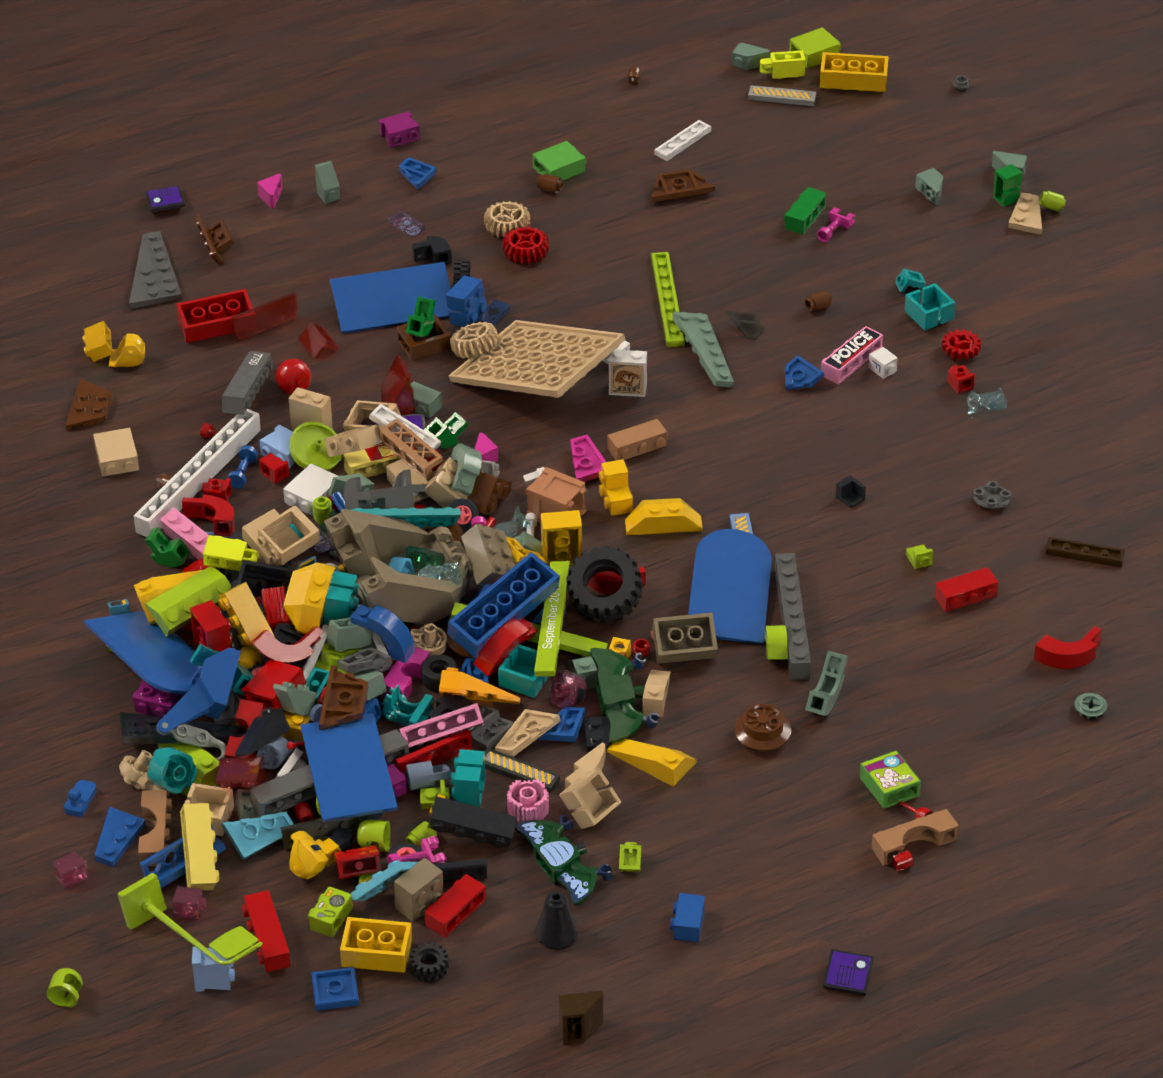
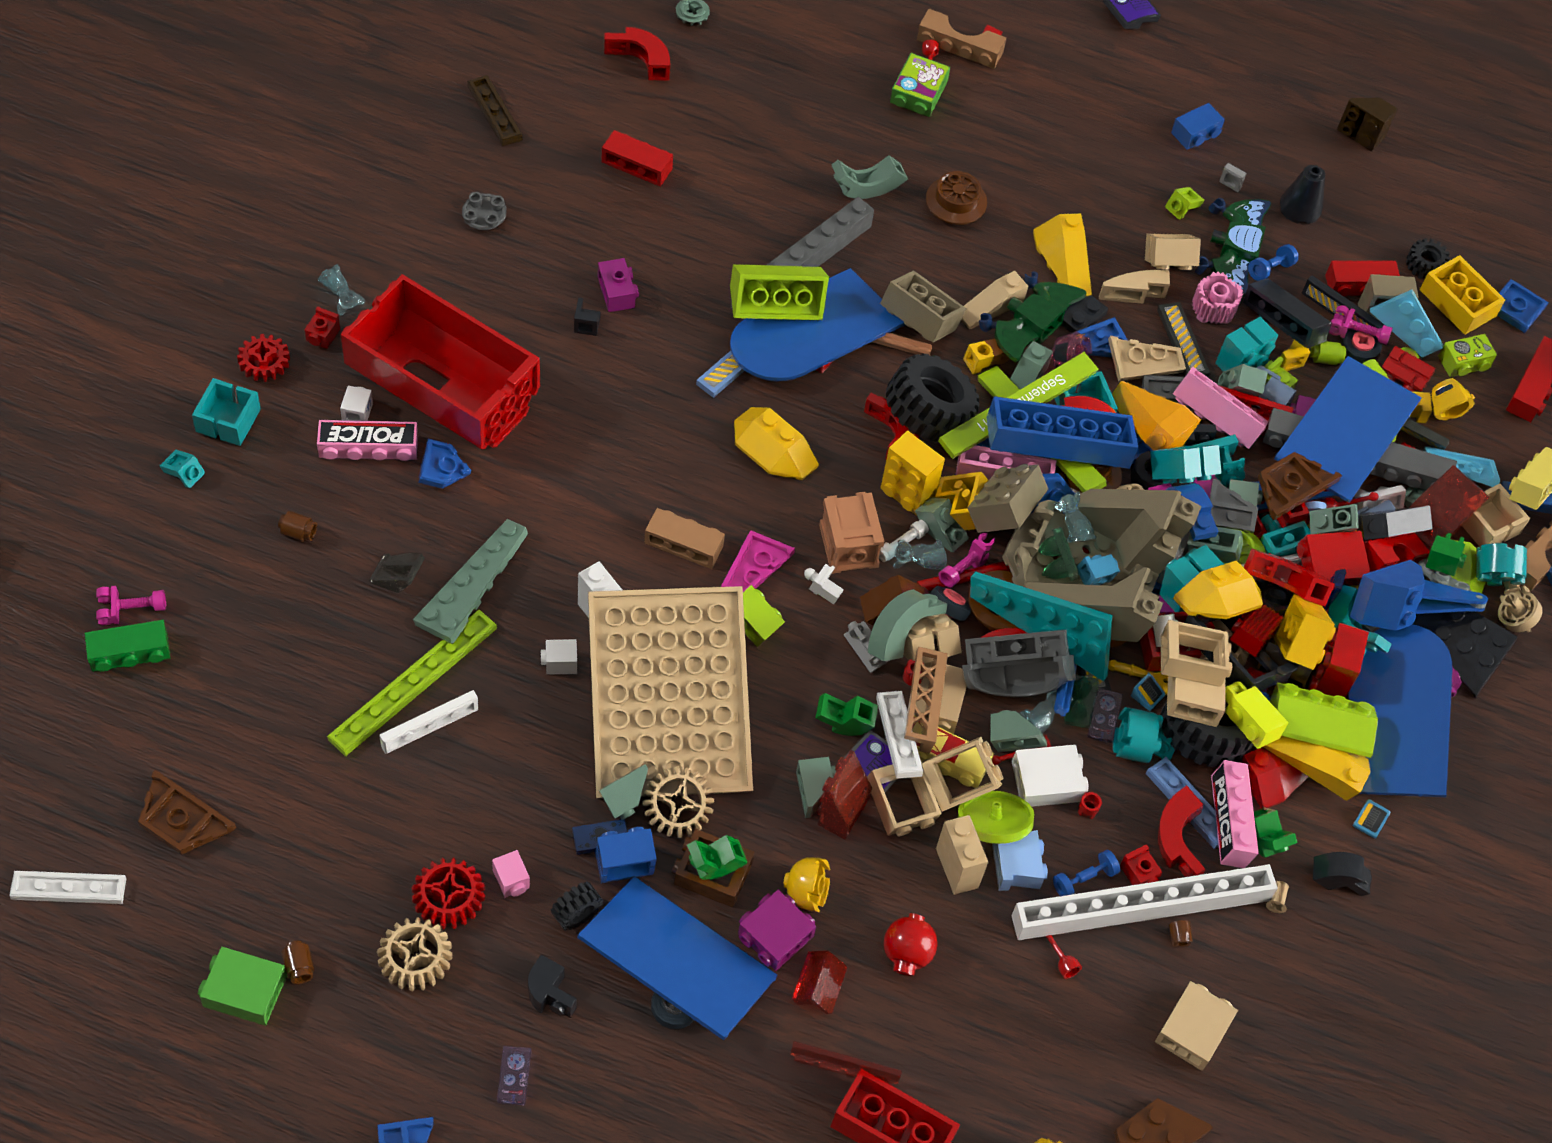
camera: 140 degrees left, 15 degrees up
(107, 559) = (1341, 870): none -> black brick
(131, 533) = (1277, 901): none -> tan piece
(209, 740) = (1446, 555): none -> green brick
(246, 382) = (981, 963): dark grey brick -> none
(255, 659) = (1338, 579): none -> clear blue tile
(274, 468) = (1057, 841): red brick -> none
(276, 495) = (1090, 799): none -> red hose
(321, 509) = (1070, 733): lime brick -> none
(362, 335) = (776, 929): none -> magenta brick
(370, 359) = (808, 883): none -> yellow cylinder
(415, 651) = (1186, 463): none -> teal piece
(443, 750) = (1244, 379): none -> sand green slope
(488, 449) = (839, 660): dark pink slope -> none
(503, 320) = (625, 793): none -> sand green slope
(509, 269) = (511, 874): none -> bright pink brick
(520, 875) = (1261, 268): none -> blue wheel
(550, 432) = (759, 617): none -> lime brick
(615, 487) = (779, 499): yellow brick -> none
(621, 900) = (1232, 177): none -> light grey tile
(632, 287) = (429, 722): none -> white tile
(641, 646) = (957, 344): red plate -> none
(767, 563) = (778, 292): none -> lime slope
(776, 642) = (849, 244): lime brick -> none
(863, 518) = (617, 284): none -> magenta brick
(864, 385) = (485, 370): none -> red panel
(920, 556) = (622, 218): lime bracket -> none

